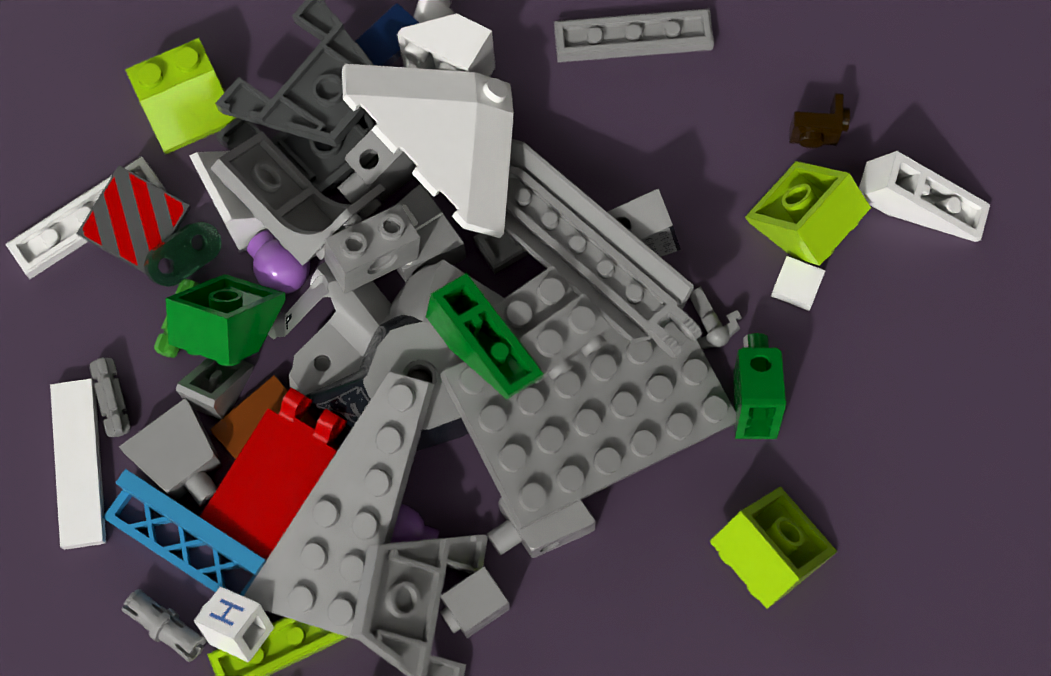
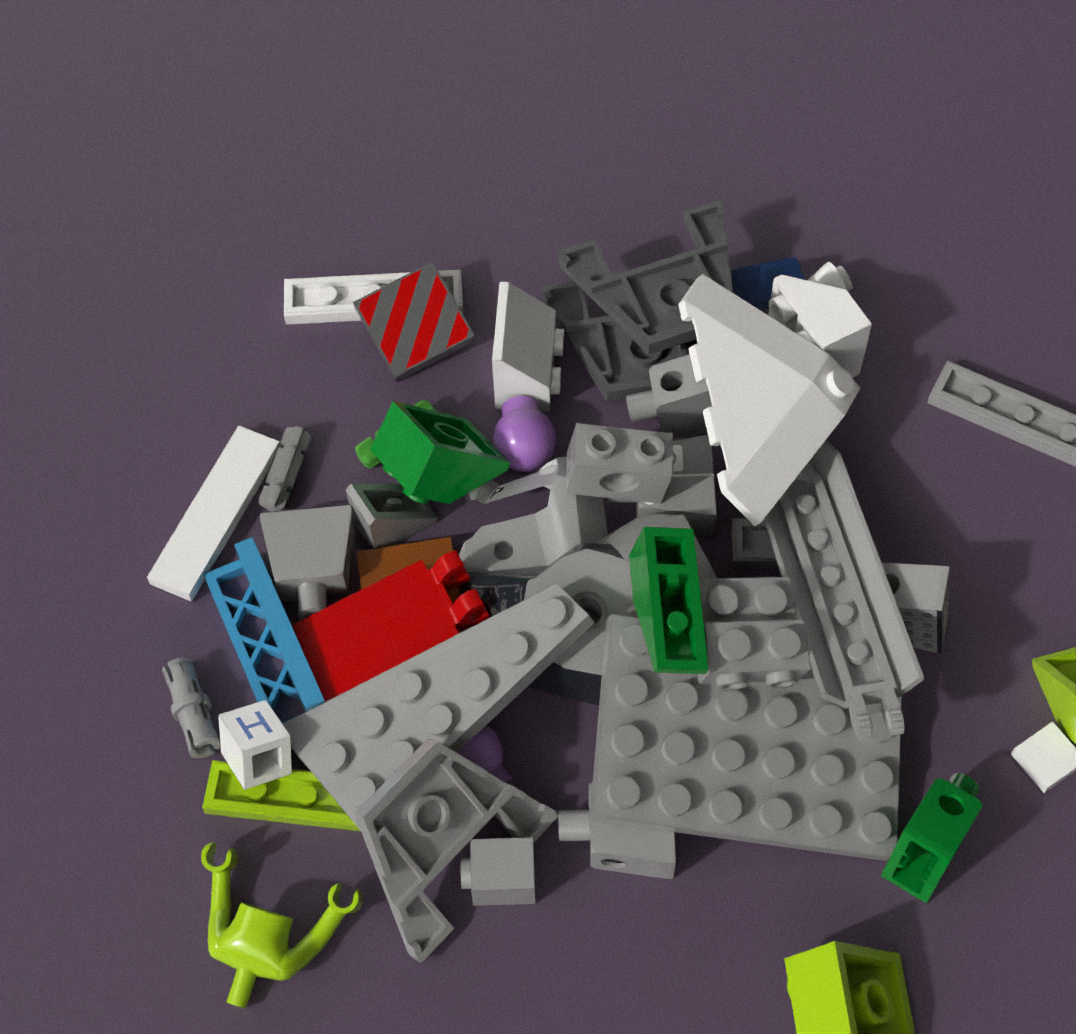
camera: 30 degrees right, 10 degrees down
(179, 95) = (528, 229): lime slope -> none
(181, 254) = (438, 376): clear green plate -> none
(287, 199) = (567, 371): light grey bracket -> none
(717, 334) = (927, 757): light grey piece -> none

